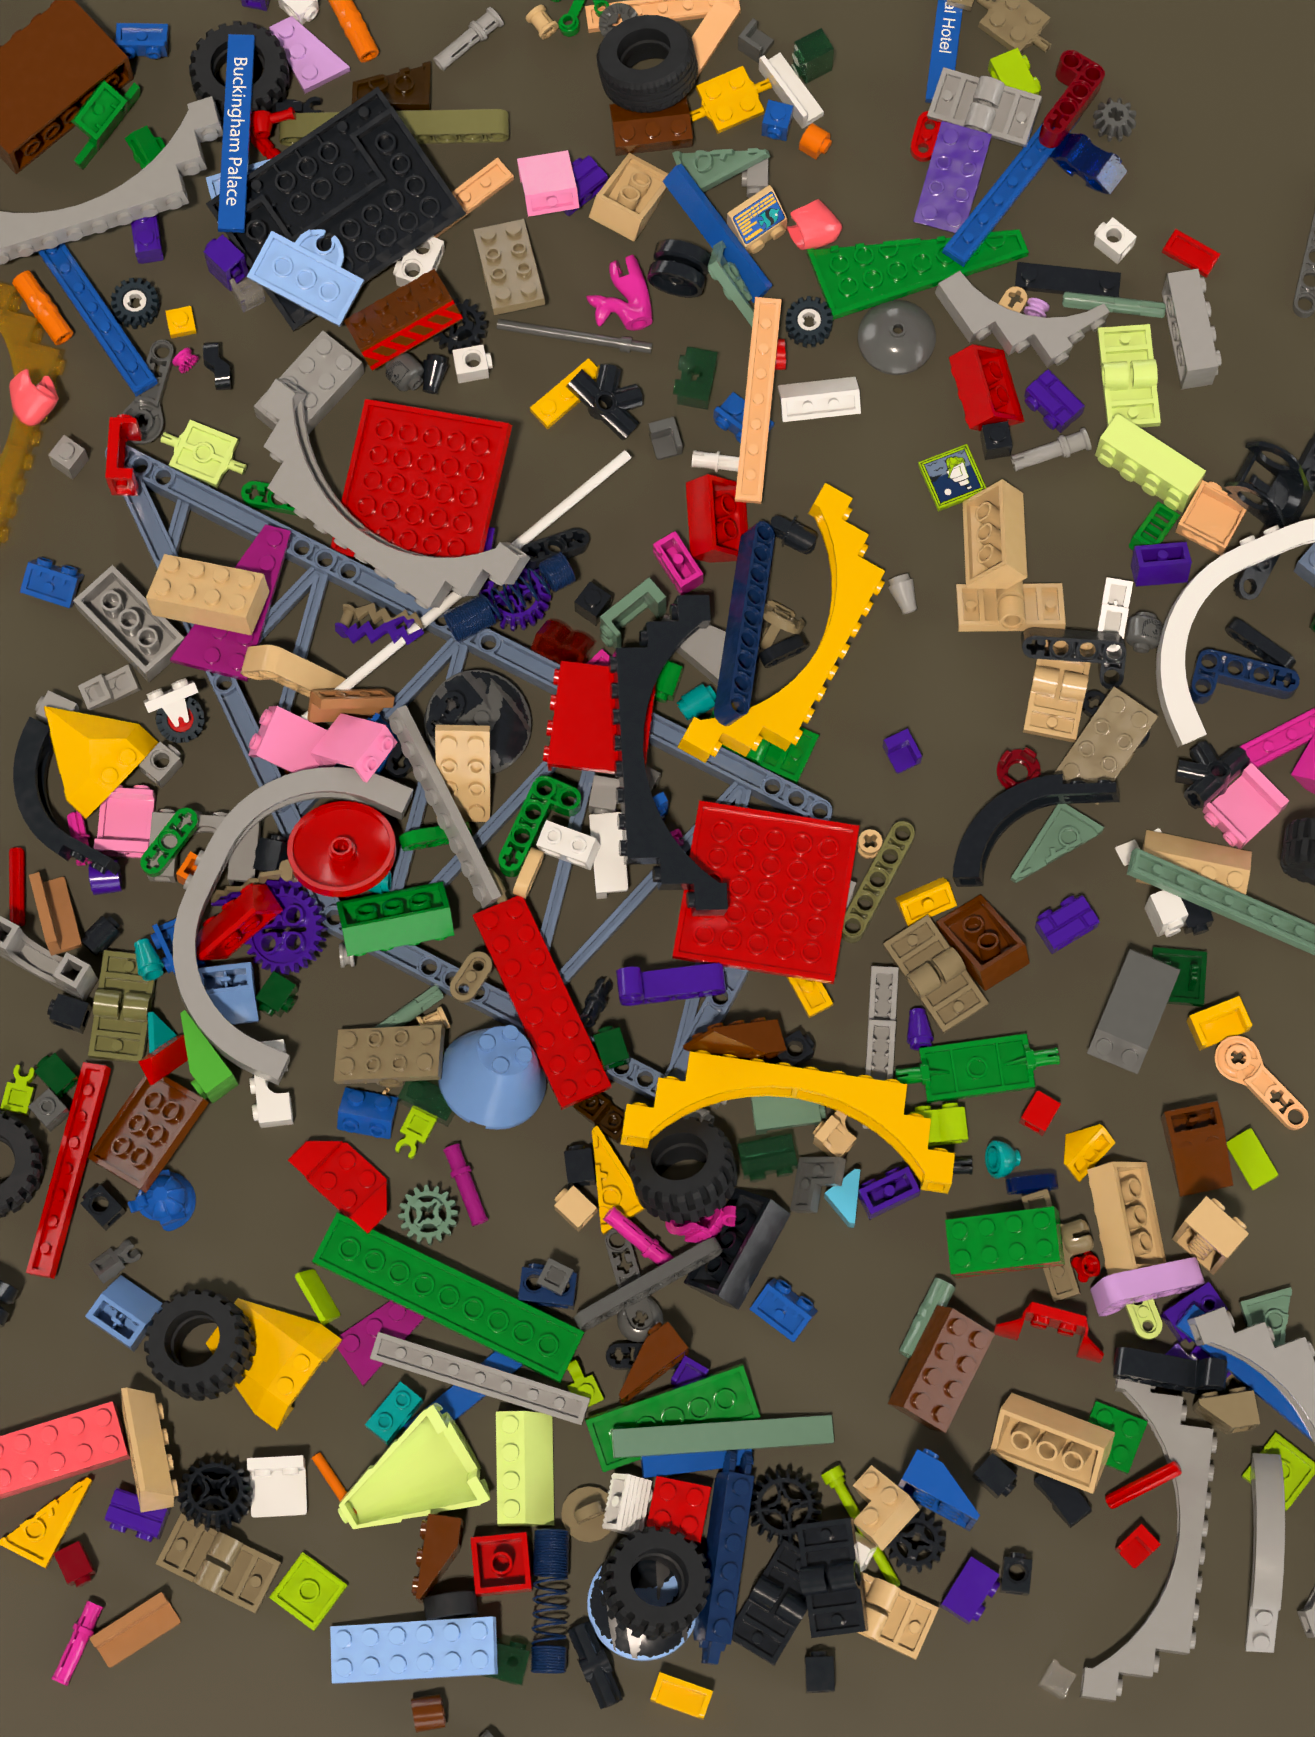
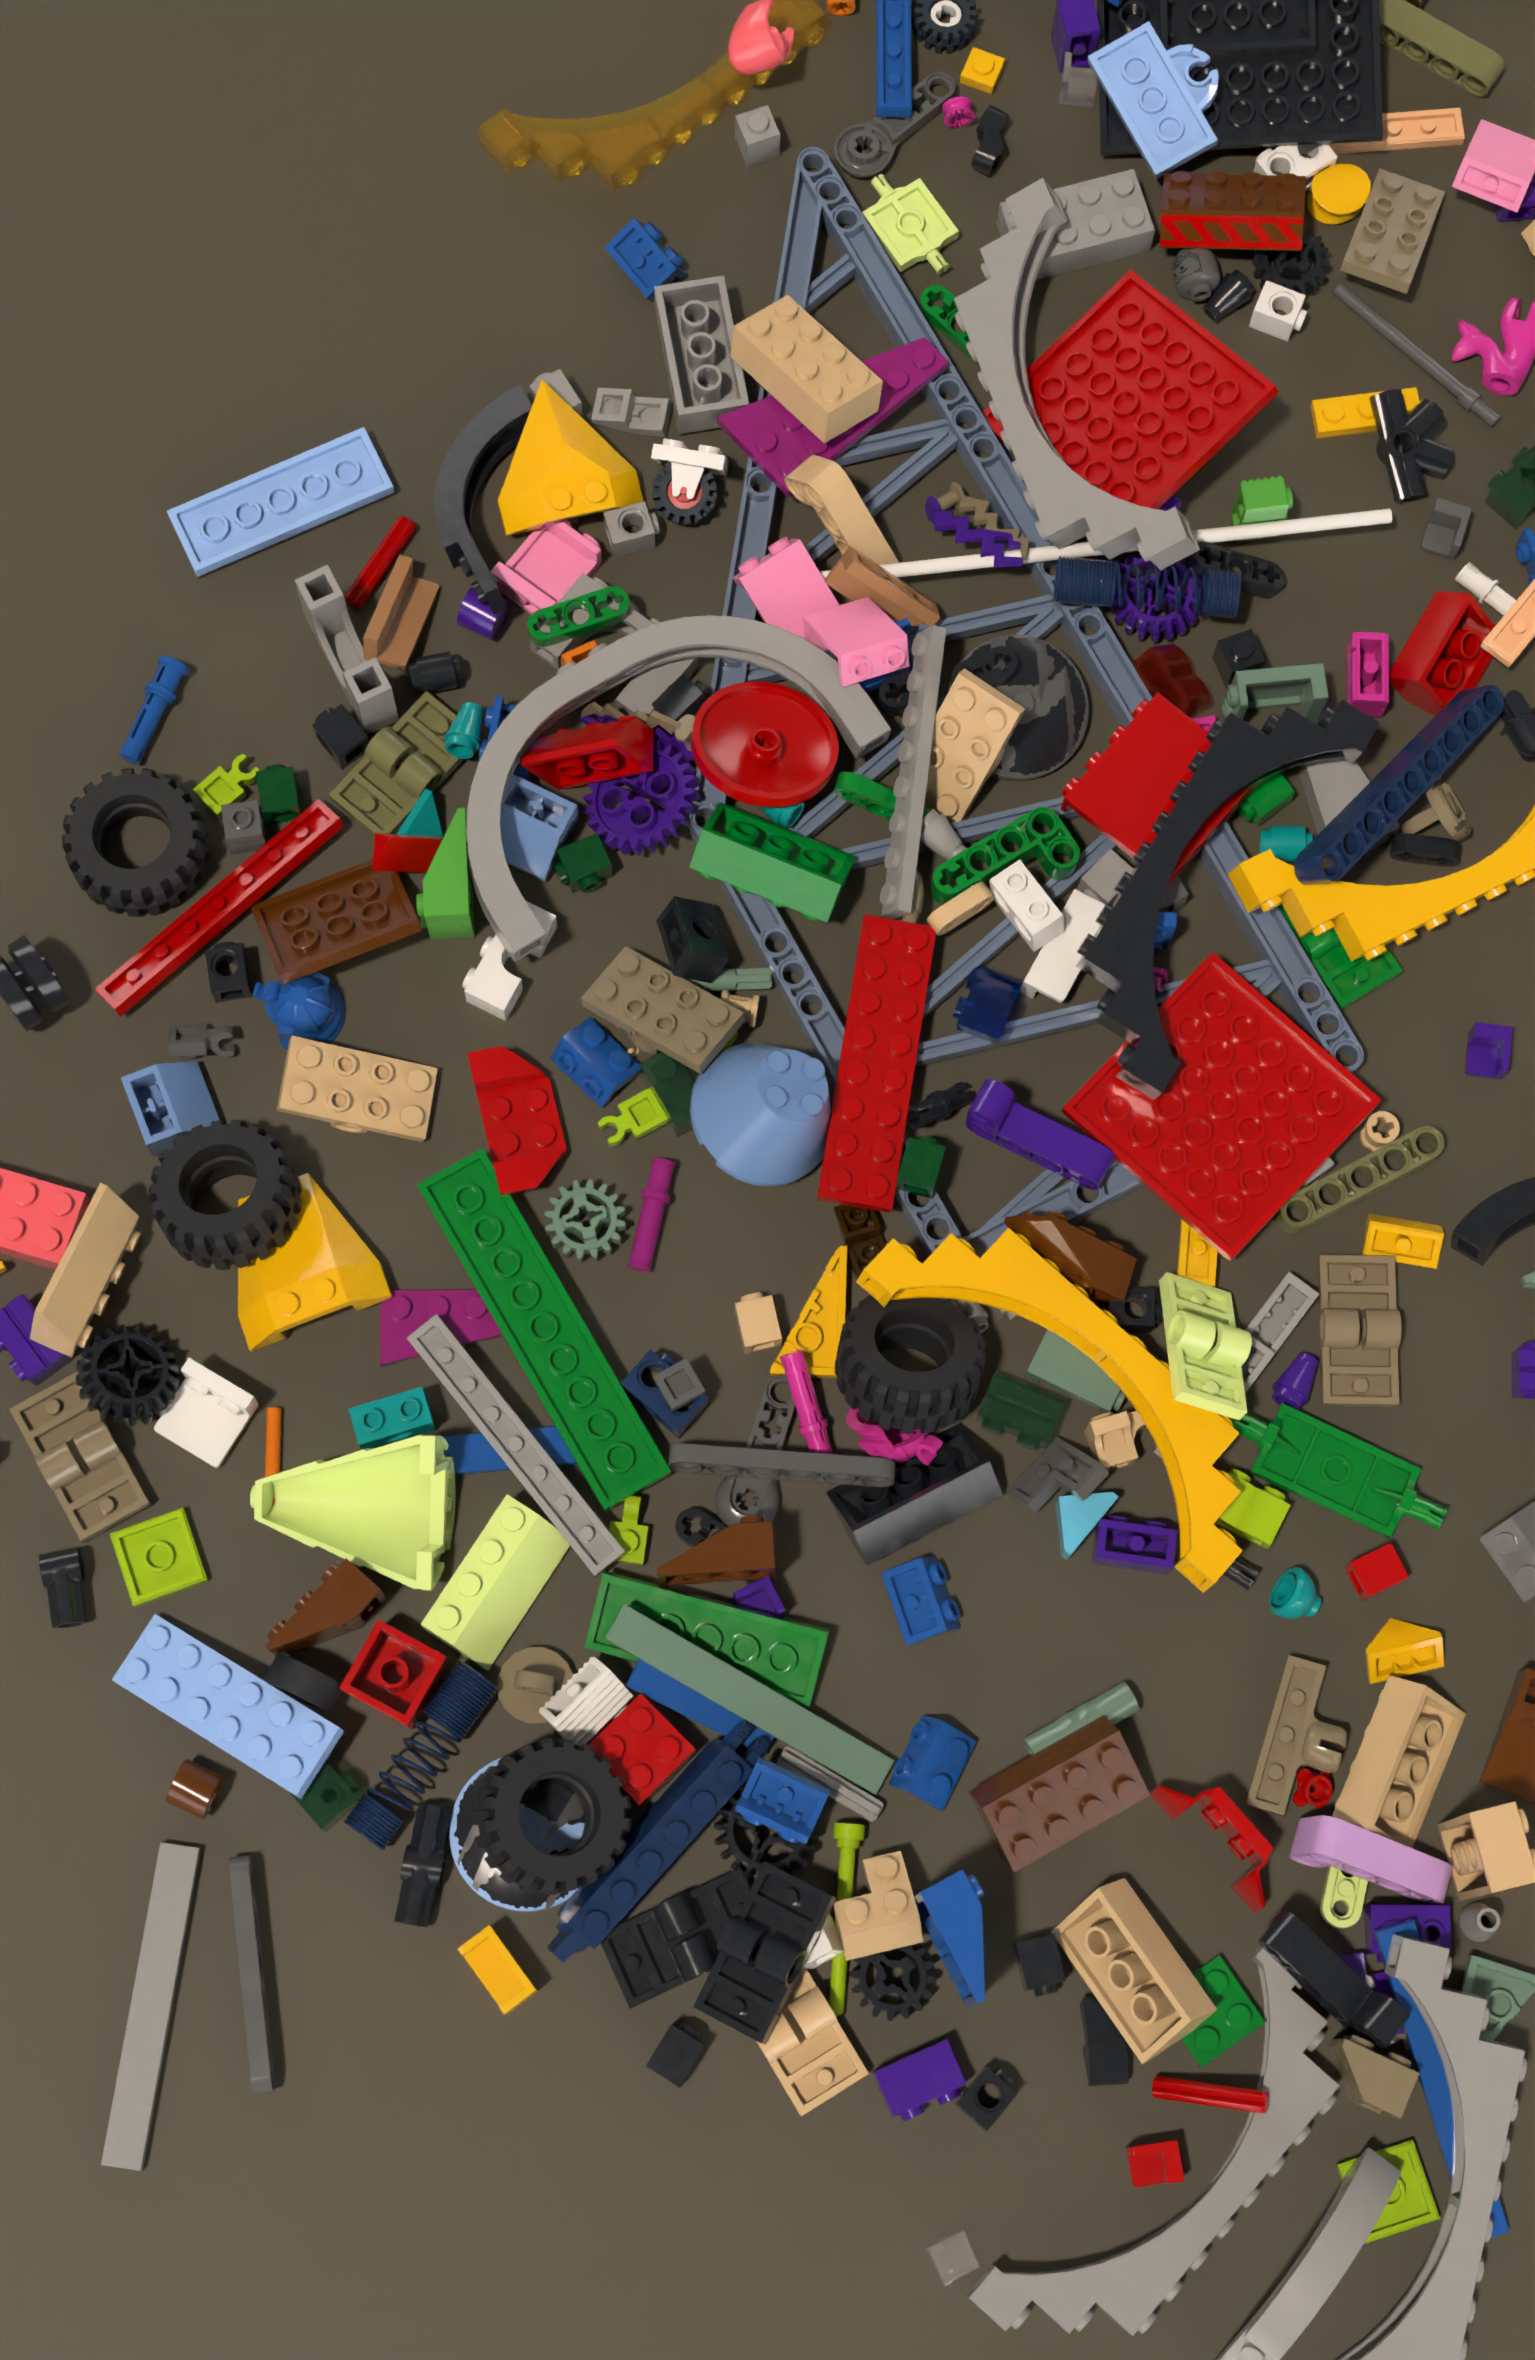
camera: 30 degrees right, 0 degrees up
(78, 831) = (488, 545): dark pink axle -> none
(121, 479) = (827, 136): red panel -> none
(234, 1227) = (357, 1089): none -> tan plate
(260, 1642) = (63, 1577): none -> black piece
(317, 1296) = (398, 1230): lime slope -> none
(344, 960) = (689, 875): light grey bush -> none
(377, 999) = (692, 939): none -> black brick
(458, 262) = (1338, 193): none -> yellow piece
(471, 978) = (812, 981): dark tan plate -> none
(486, 835) = (940, 835): none -> light grey cone
(544, 497) = (1261, 502): none -> bright green brick
(579, 1166) = (794, 1279): black brick -> none
(584, 920) = (988, 1004): none -> clear blue brick
(783, 1482) = (782, 1801): none -> blue bracket
(802, 1454) = (841, 1789): none -> light grey axle
(851, 1045) = (1204, 1346): none -> yellowish green plate
(854, 1400) = (932, 1761): none -> blue bracket
(984, 942) = (1440, 1331): reddish brown slope -> none
(1005, 1242) = (1234, 1695): green brick -> none
(1031, 1184) = (1311, 1648): clear blue beam -> none
(1230, 1285) = (1471, 1922): none -> light grey cone

